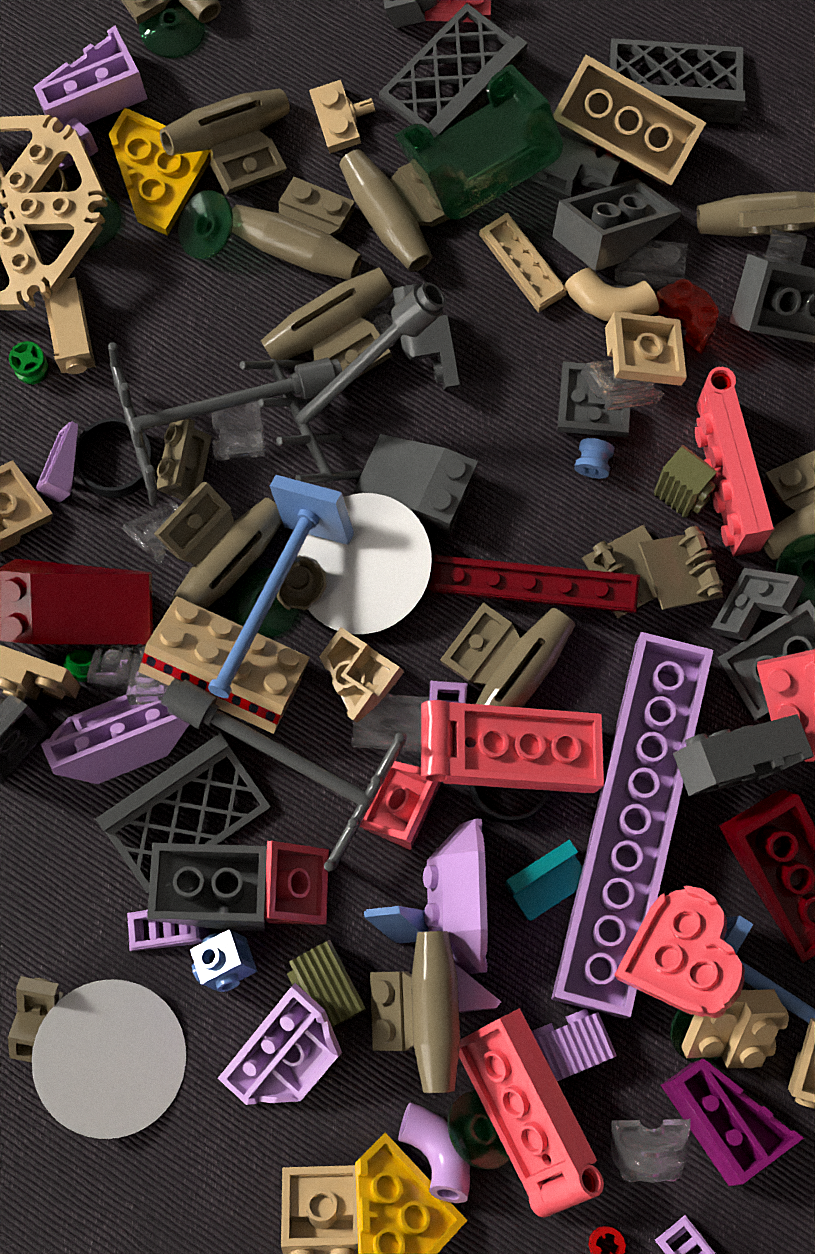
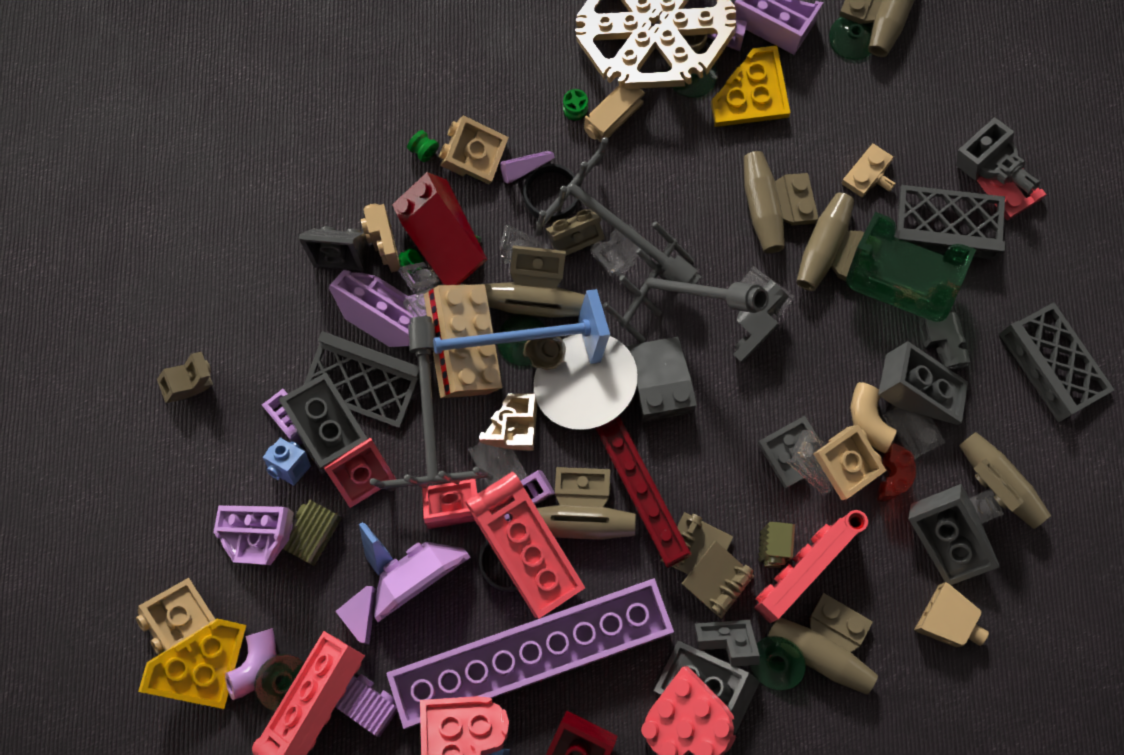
camera: 55 degrees right, 0 degrees up
(108, 1059) = (189, 435): white sticker -> none
(205, 225) = (736, 143): clear green dish -> none
(232, 132) = (804, 119): dark tan plate -> none
(333, 323) = (726, 259): dark tan plate -> none
(421, 1011) = (327, 597): dark tan plate -> none
(523, 262) = (854, 348): tan plate -> none
(546, 881) = (460, 623): teal panel -> none
(594, 458) = (754, 477): medium blue wheel -> none
(628, 121) = (996, 347): tan brick -> none
(741, 755) = (615, 693): dark grey wedge -> none

